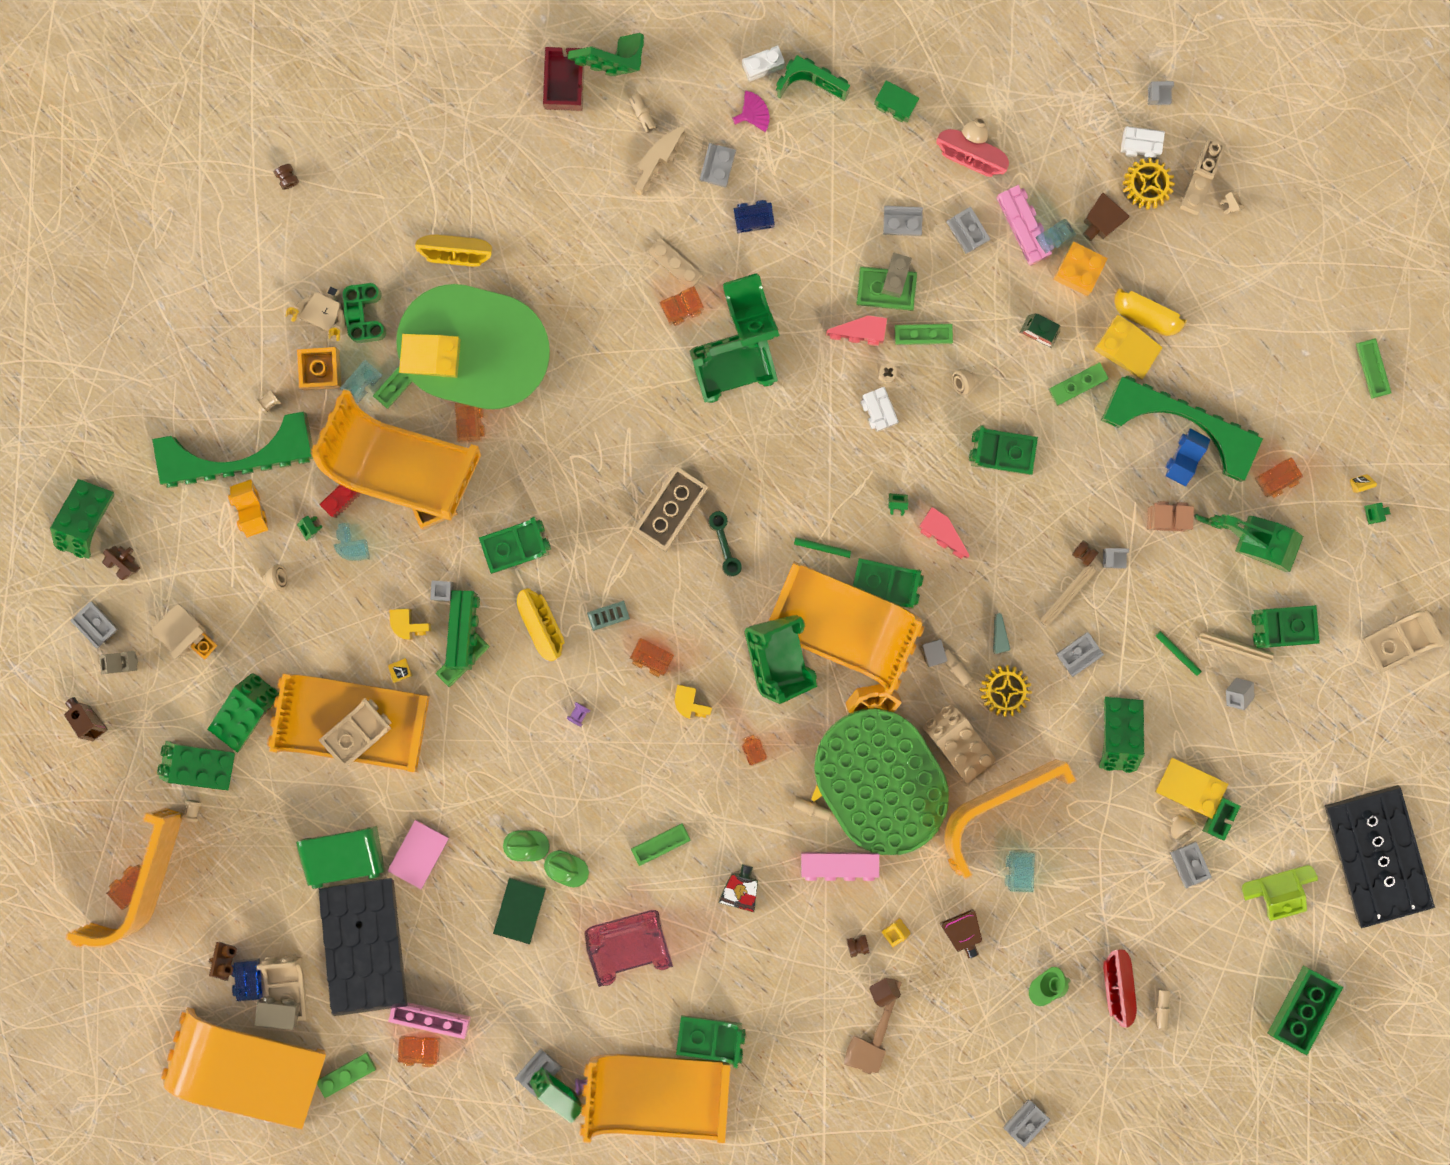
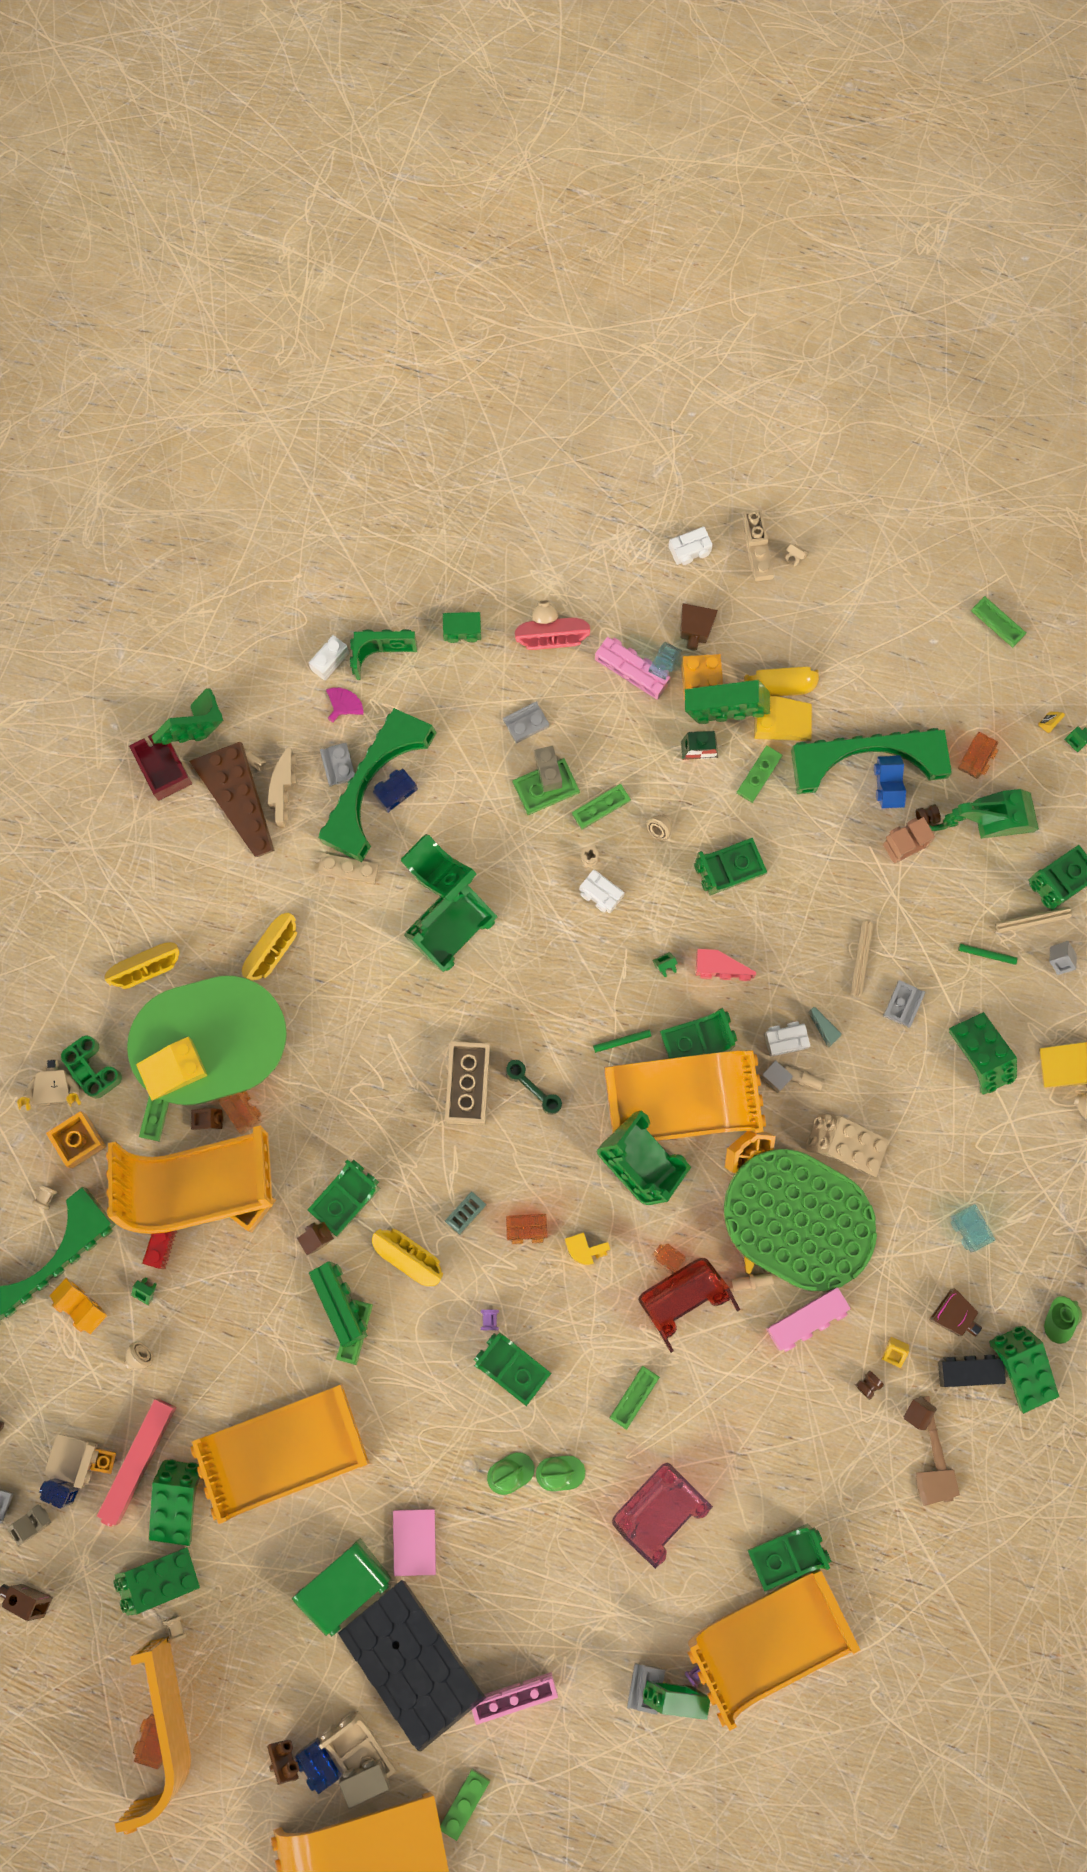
camera: 30 degrees left, 10 degrees down
(155, 650) = (58, 1492): none -> clear blue brick
(230, 662) = (136, 1462): none -> coral brick
(350, 549) = (192, 1290): clear light blue brick -> none
(356, 733) = (292, 1459): tan bracket -> none
(359, 380) = (119, 1127): clear light blue brick -> none
(400, 670) = (301, 1376): slope -> none
(402, 624) = (280, 1332): yellow brick -> none
(418, 1050) = (521, 1736): clear orange brick -> none
(437, 413) = (206, 1119): none -> reddish brown bracket
(441, 590) = (299, 1278): light grey panel -> none
(473, 564) = (315, 1237): none -> reddish brown brick
(519, 910) = (539, 1540): dark green tile -> none
(569, 296) = (270, 947): none -> yellow brick
(574, 763) = (512, 1368): none -> green bracket
(615, 132) = (233, 787): none -> reddish brown wing
(682, 306) = (375, 900): clear orange brick -> none
(740, 890) = (732, 1396): torso -> none
(748, 784) = (683, 1293): none -> clear red windscreen
(783, 170) = (398, 735): none -> green arch
(864, 329) = (547, 830): coral slope -> none
(948, 983) = (971, 1371): none -> black brick
(962, 627) = (786, 1039): none -> white brick
(968, 230) = (587, 698): light grey plate -> none
(992, 798) = (892, 1204): light orange panel -> none
(994, 1006) = (1027, 1367): none -> green bracket
(1005, 699) = (855, 1065): yellow gear -> none
(1087, 306) = (727, 701): none -> green brick
(1088, 556) = (854, 913): reddish brown wheel -> none
(1115, 557) = (882, 903): light grey panel -> none
(1142, 179) = (700, 575): yellow gear -> none
(1160, 92) = (680, 499): light grey panel -> none
(1202, 505) = (931, 814): none -> reddish brown wheel

